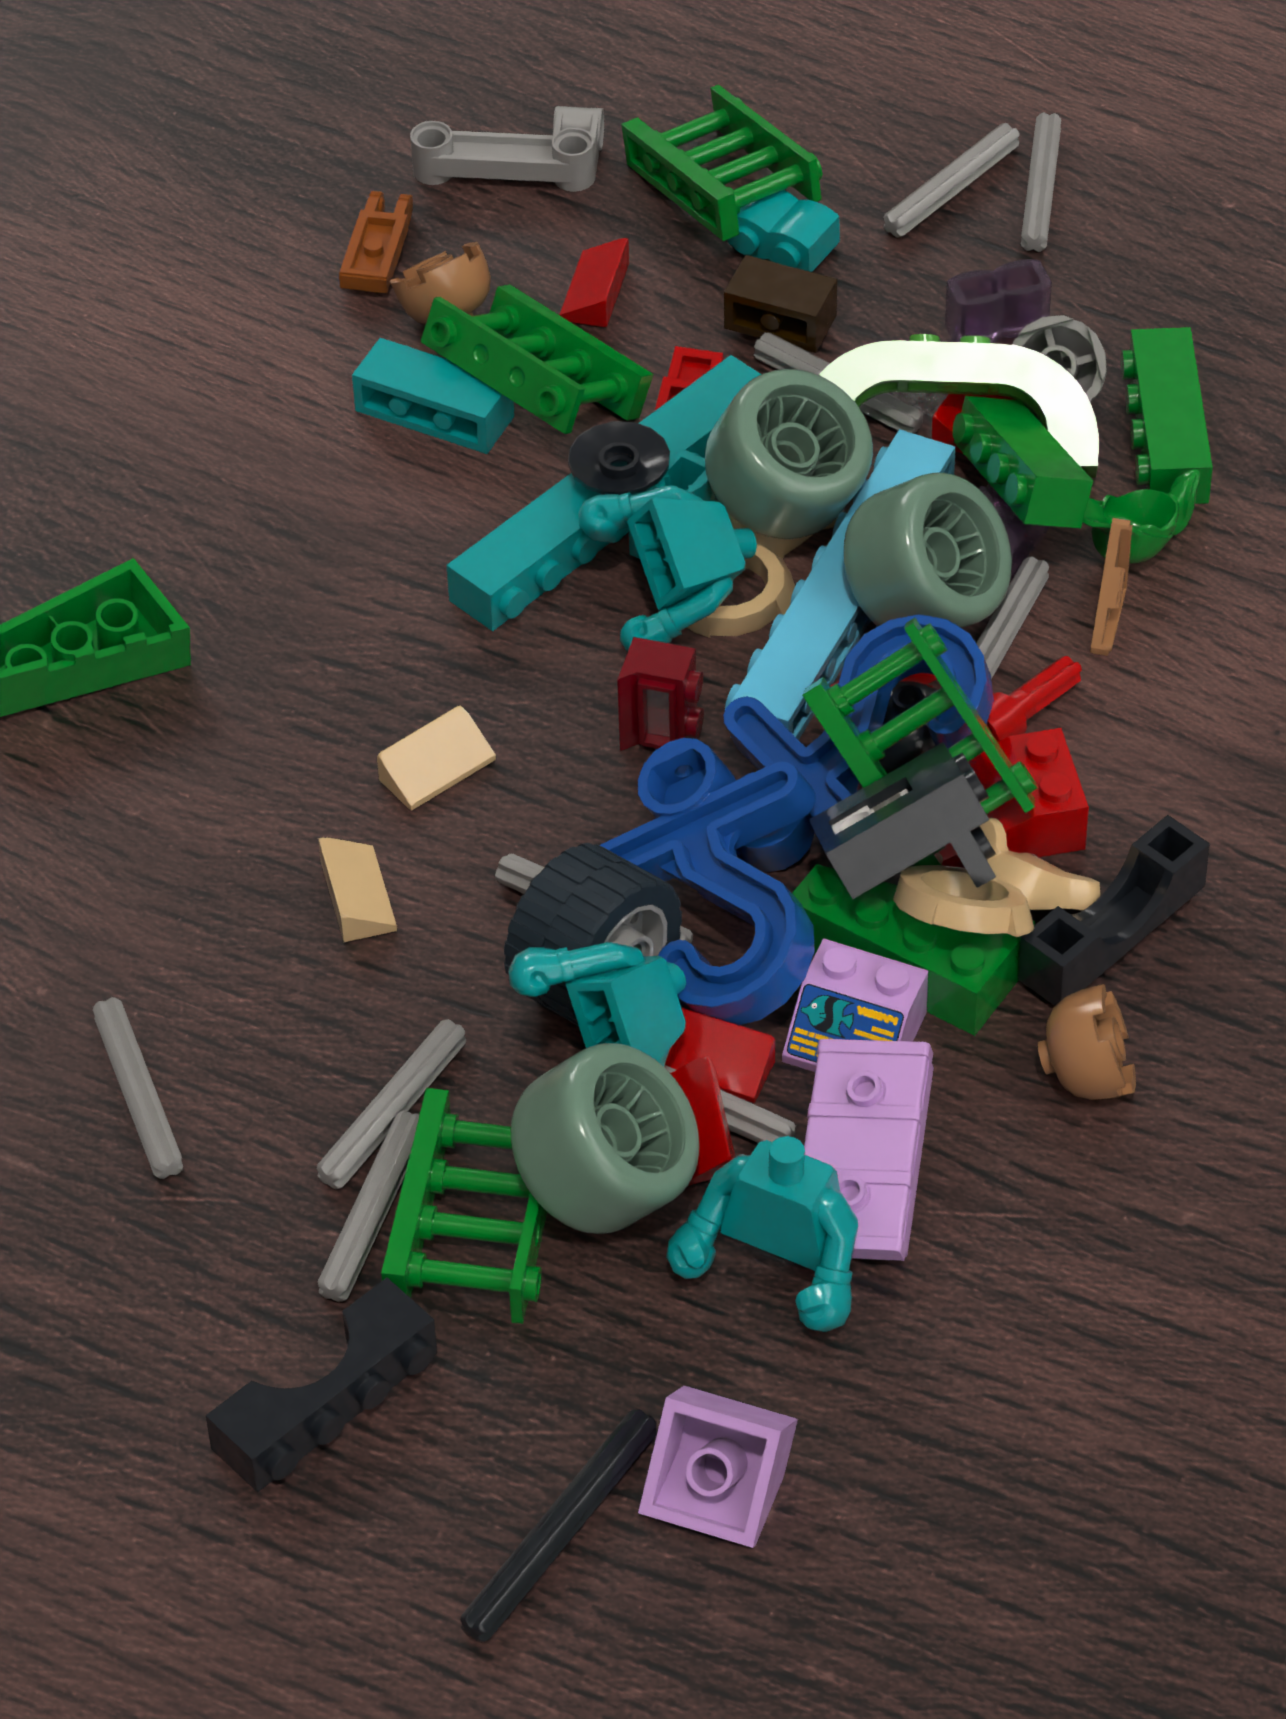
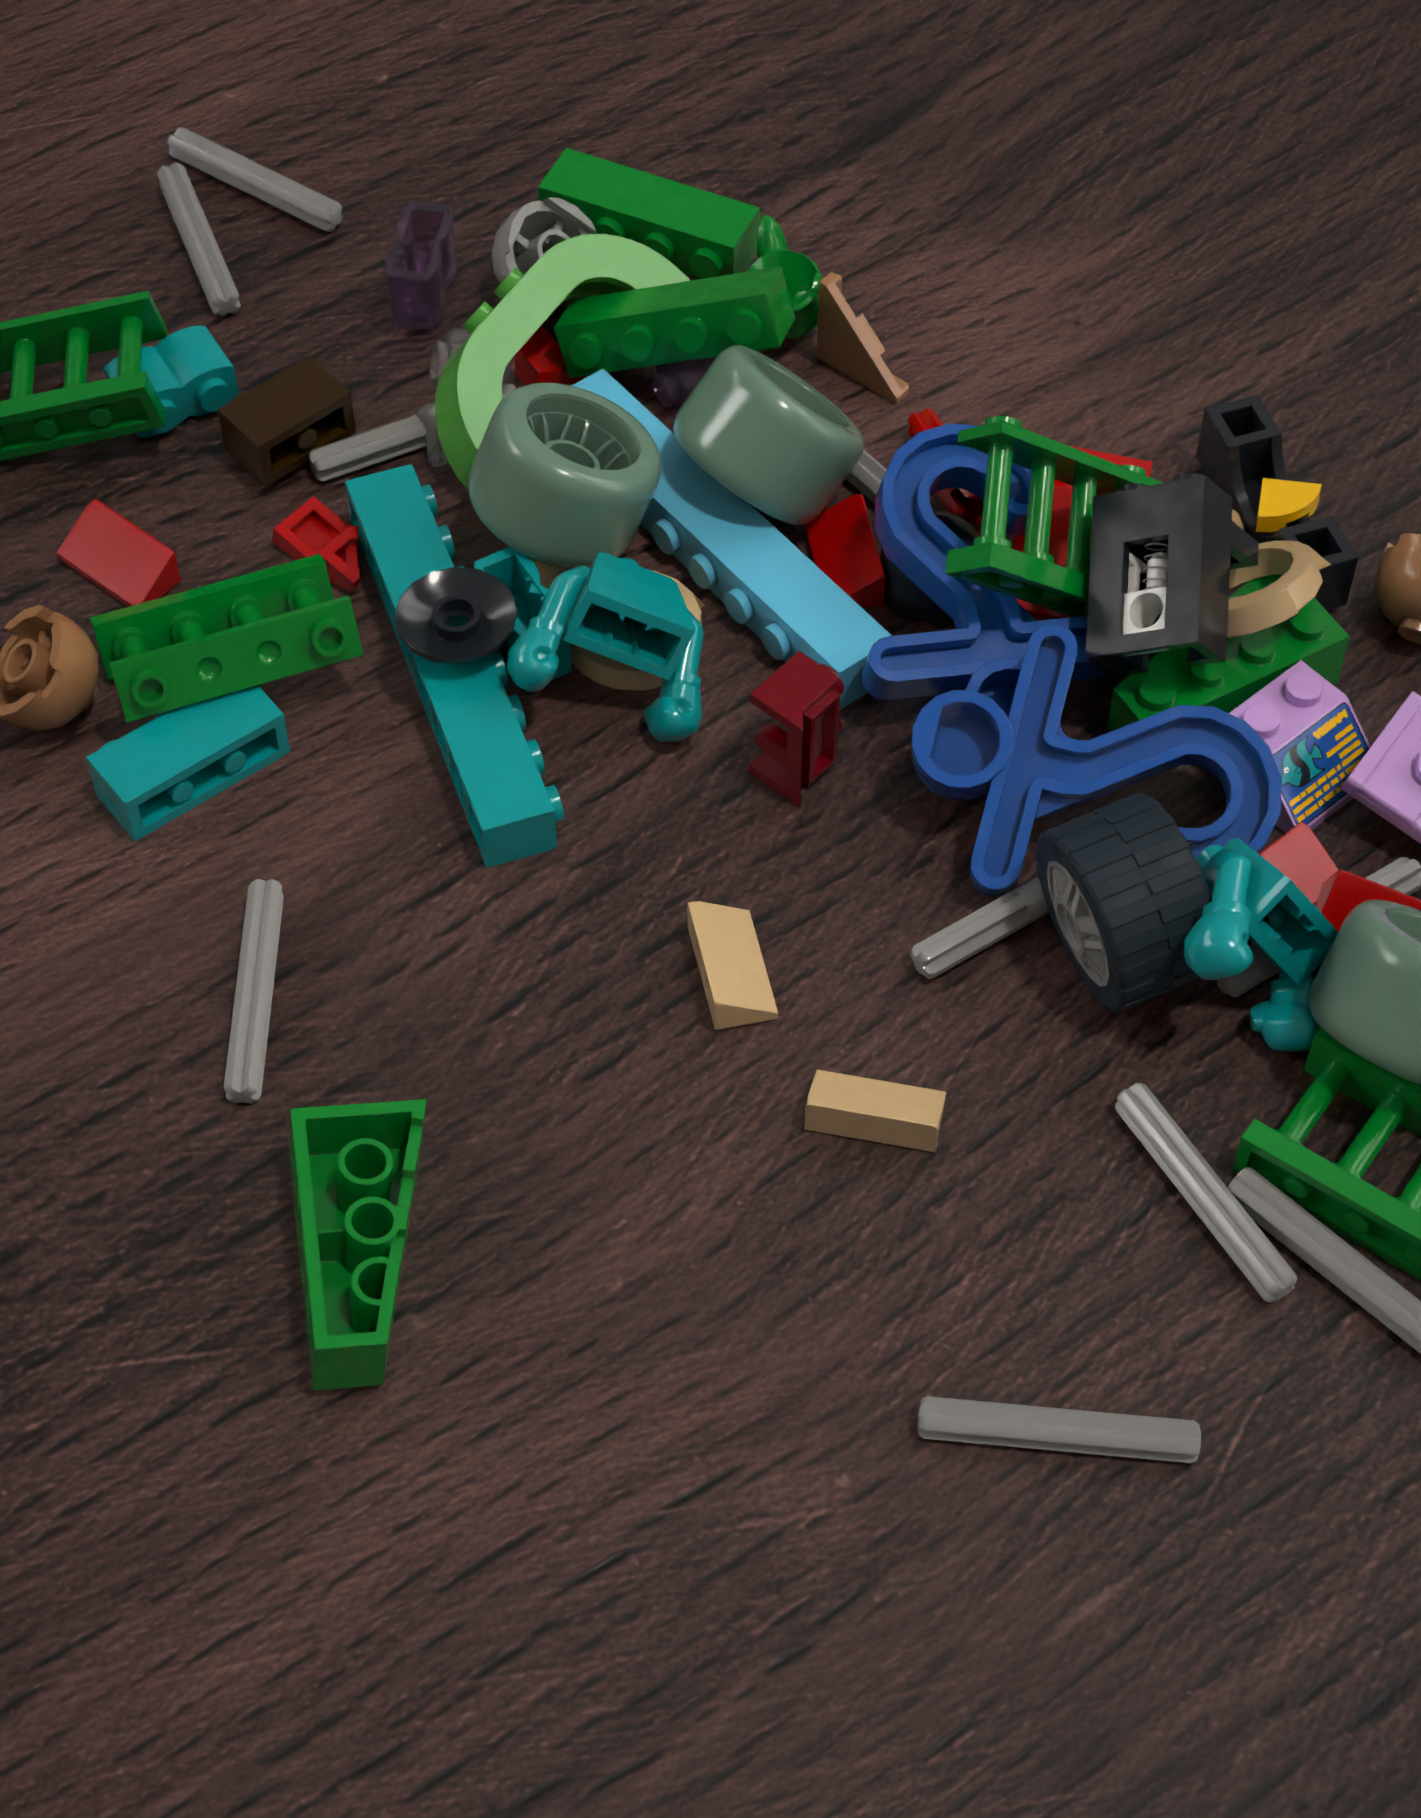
camera: 65 degrees left, 5 degrees up
(258, 521) = (254, 992): none -> light grey axle
(1112, 910) = (1284, 502): none -> yellow tile

